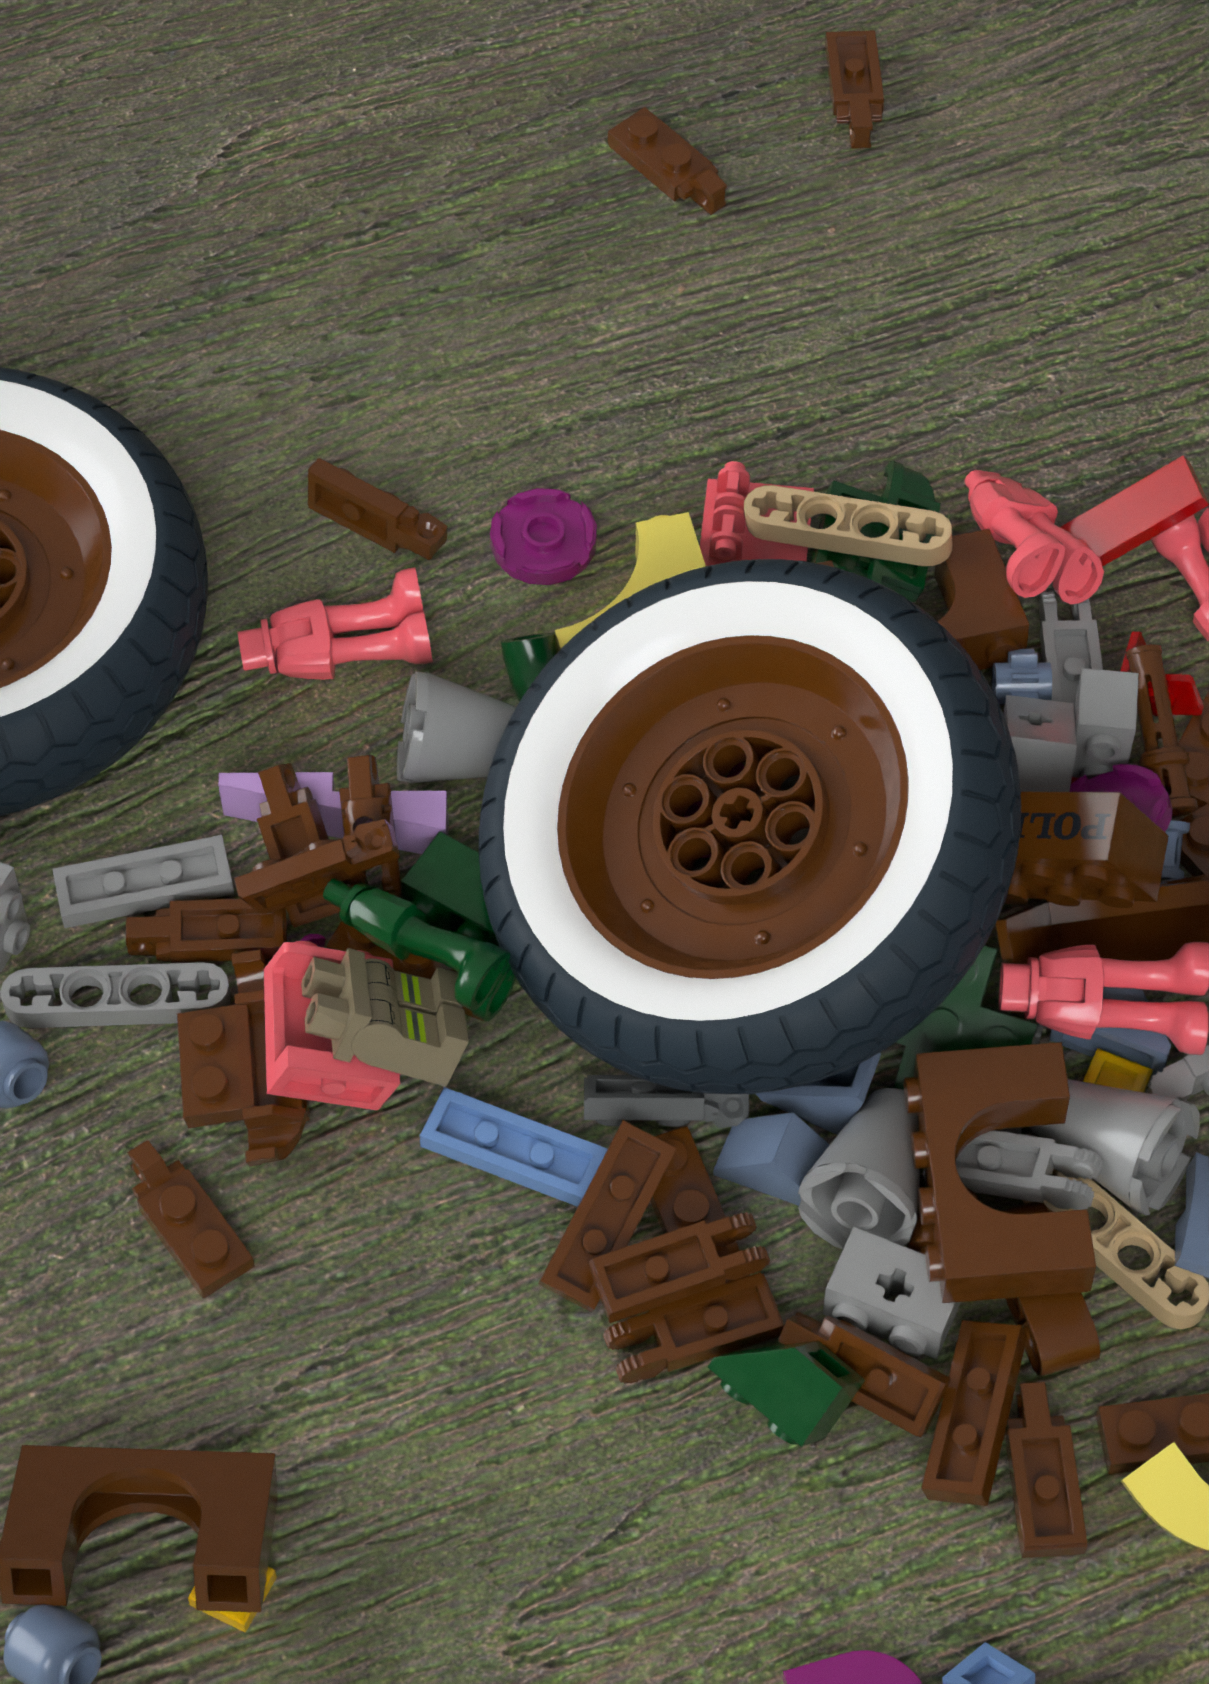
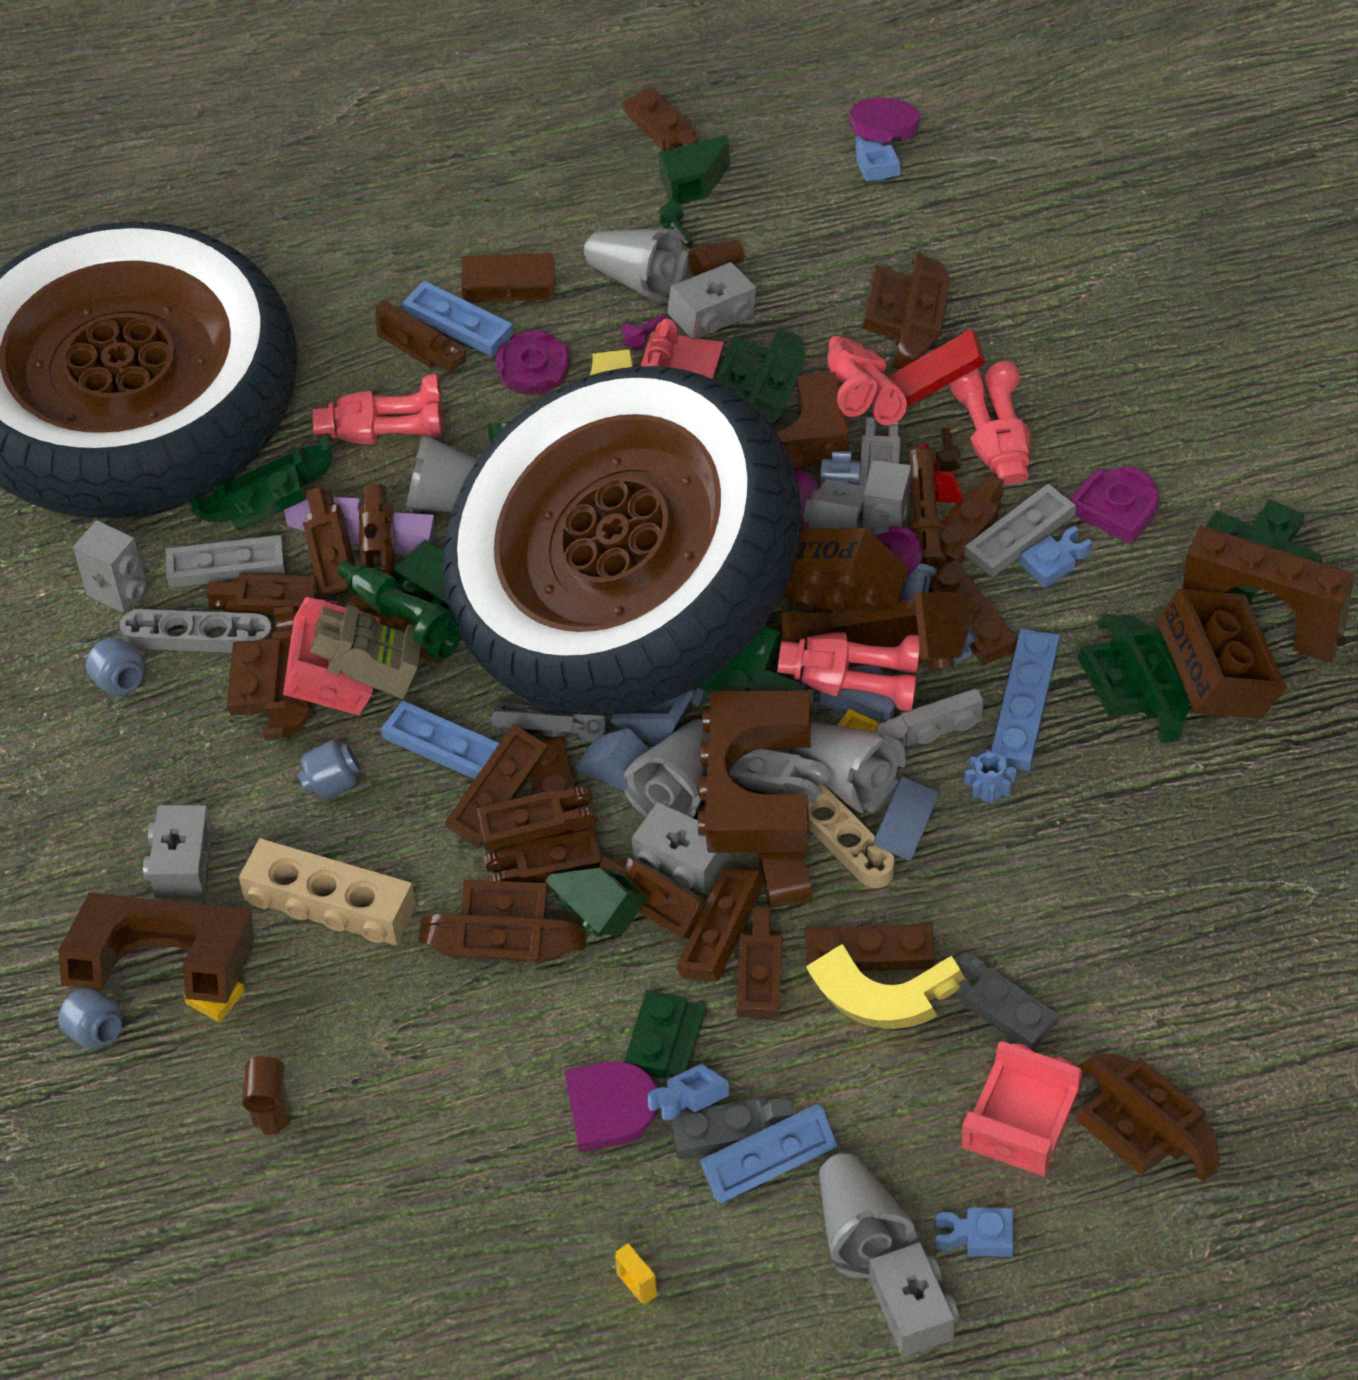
camera: 10 degrees right, 5 degrees down
(151, 1392) = (178, 851): none -> light grey brick
(187, 1222) = (221, 772): reddish brown hinge -> none
(189, 765) = (266, 488): none -> dark green plate
(285, 882) = (322, 560): reddish brown hinge -> none
(297, 1369) = (311, 876): none -> tan brick
(352, 1208) = (329, 770): none -> sand blue head
(426, 476) = (458, 318): none -> medium blue plate
(488, 409) = (508, 277): none -> reddish brown piece
(649, 1441) = (502, 924): none -> reddish brown plate
(675, 371) = (640, 259): none -> light grey cone
(686, 485) = (637, 335): none -> magenta hand
(703, 303) = (670, 217): none -> dark green hand
(725, 229) = (694, 169): none -> dark green slope
(777, 362) = (713, 255): none -> reddish brown cone
(790, 428) = (711, 300): none -> light grey brick
(850, 517) = (779, 371): tan beam -> none
(855, 82) = (802, 78): reddish brown hinge -> none
(922, 1598) = (665, 1034): none -> dark green plate
(981, 200) = (876, 160): none -> medium blue plate
(983, 138) = (884, 118): none -> magenta tile
(1069, 419) = (908, 307): none -> reddish brown plate
(1170, 640) = (948, 458): none -> dark brown hand

